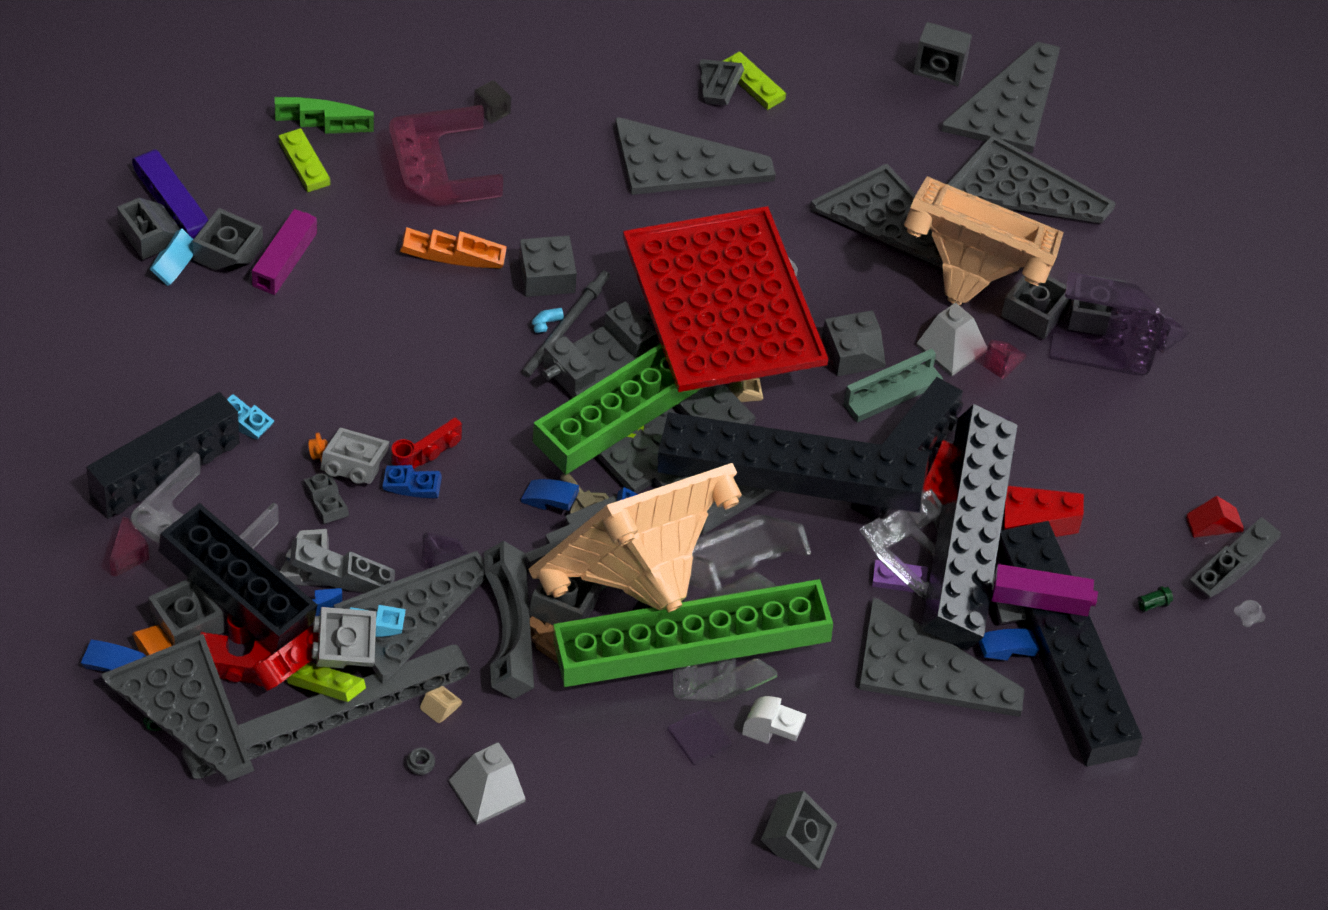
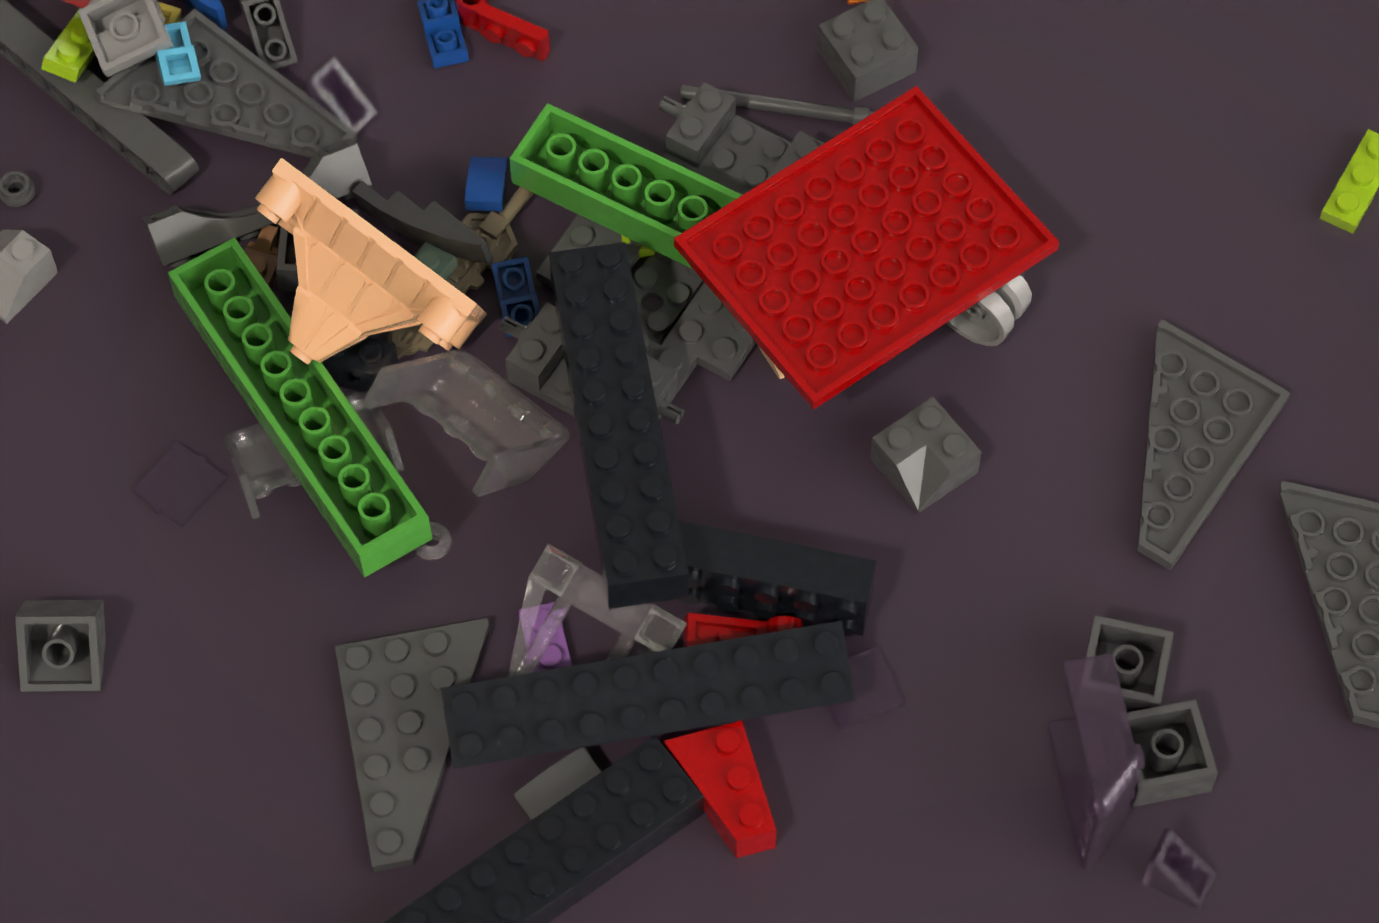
camera: 75 degrees right, 10 degrees up
(440, 704) = (115, 181): tan slope -> none
(545, 317) = (783, 77): medium azure arm -> none
(676, 161) = (1154, 142): dark grey wing -> none
(719, 80) = (1325, 137): dark grey wing -> none
(771, 717) = (217, 555): white brick -> none
(893, 388) = (875, 530): sand green fence -> none
(954, 339) = (1001, 583): light grey slope -> none
(980, 239) = (1178, 530): light nougat piece -> none
(1002, 358) = (1008, 658): clear pink slope -> none
(1004, 642) = (478, 810): blue slope -> none
(1044, 590) = (550, 817): magenta brick -> none

